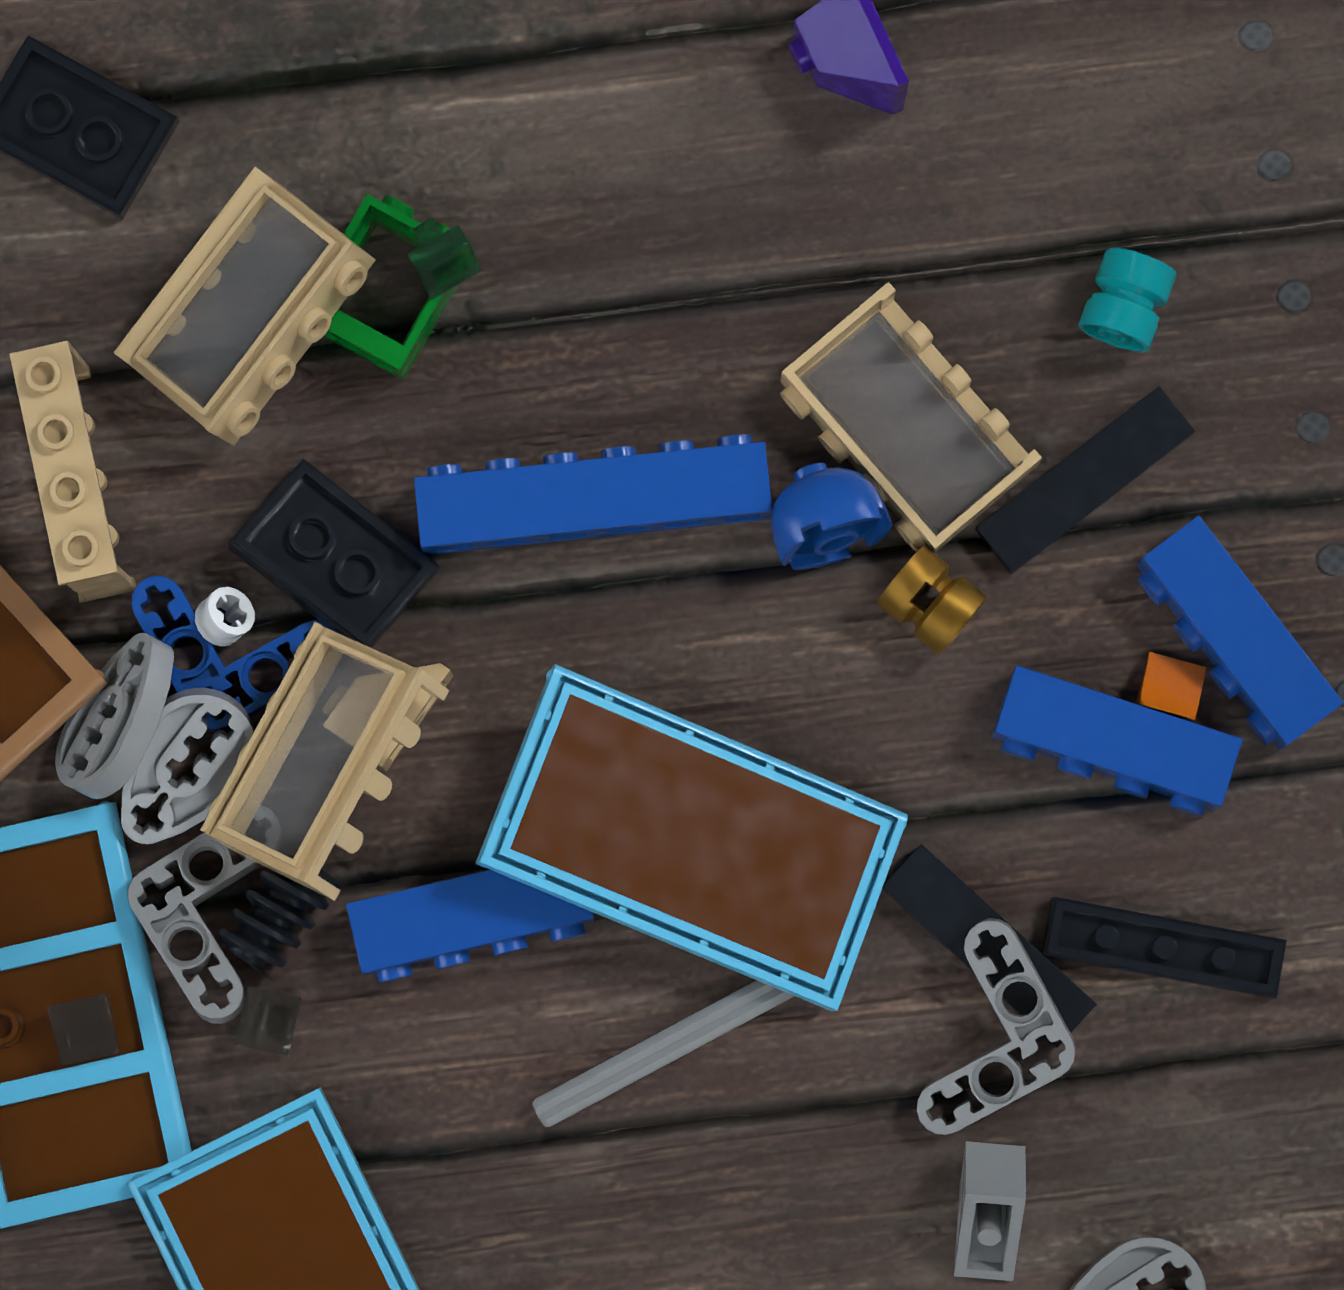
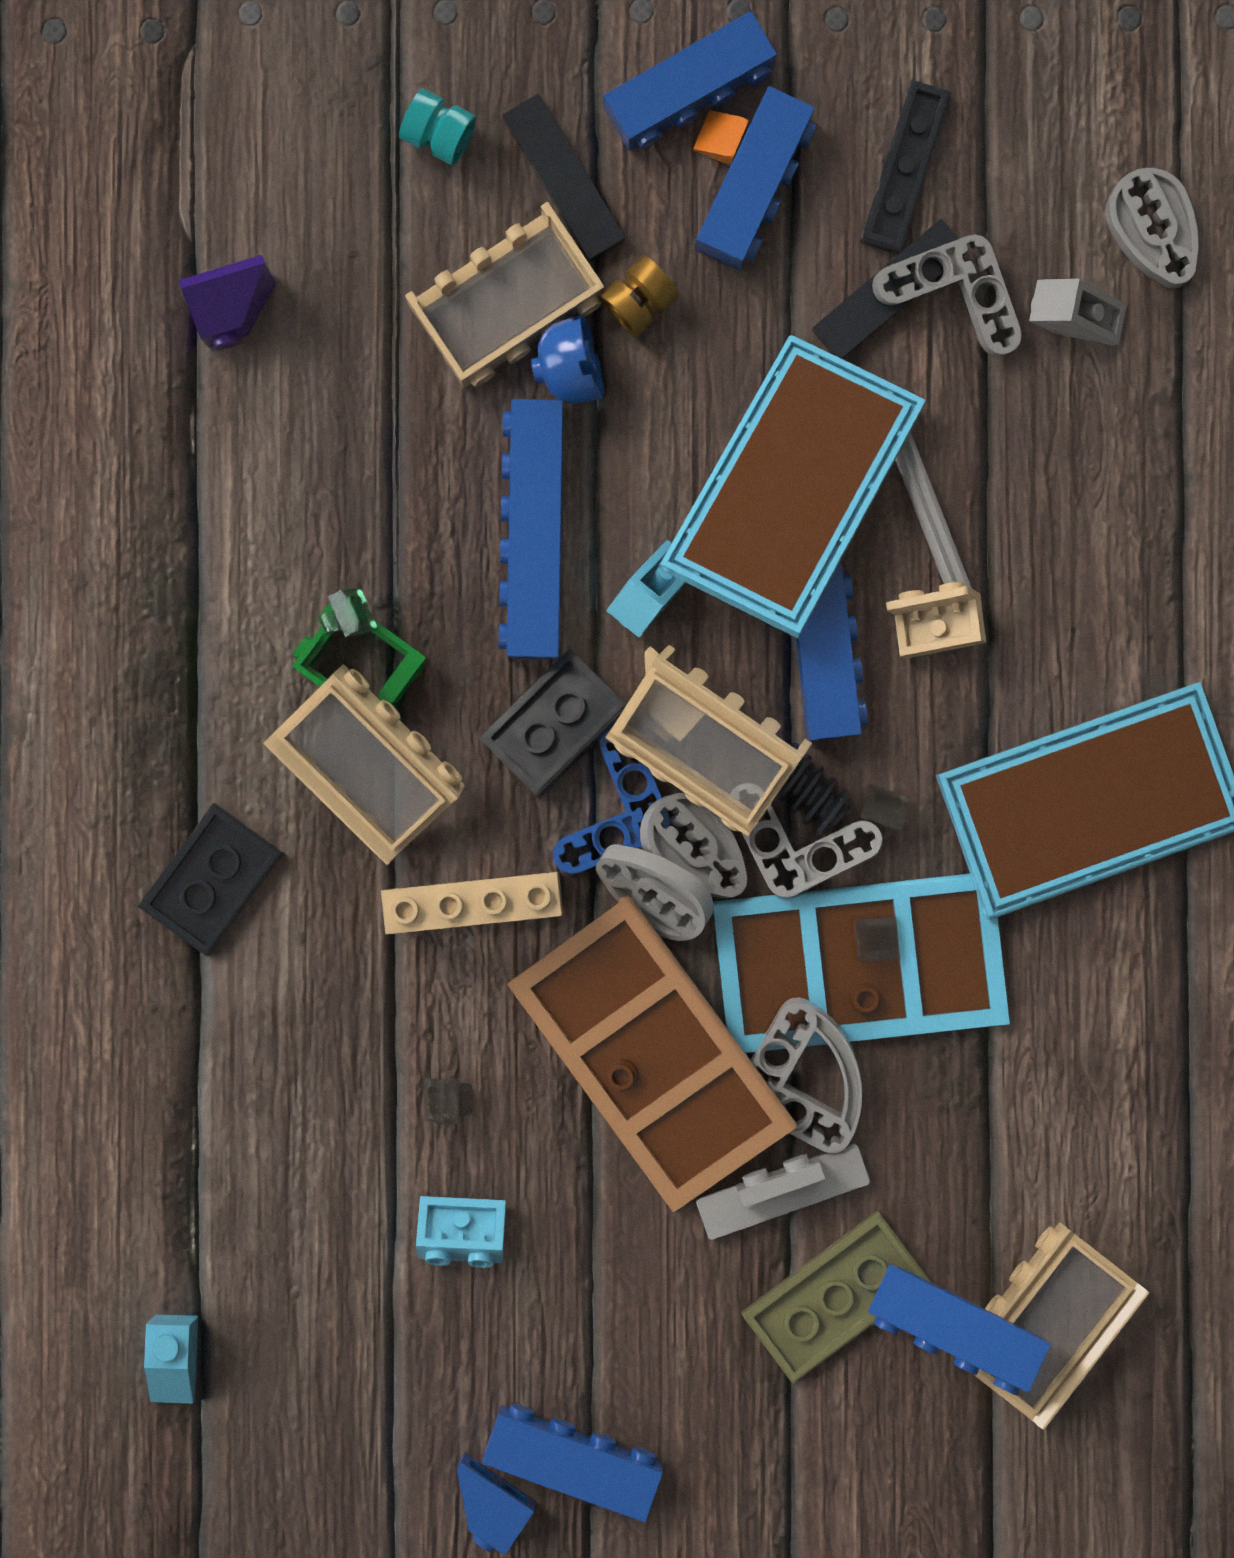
camera: 90 degrees left, 5 degrees up
(238, 612) = (584, 798): white bush -> none
(519, 655) = (645, 594): none -> medium azure slope
(531, 1063) = (938, 620): none -> tan bracket

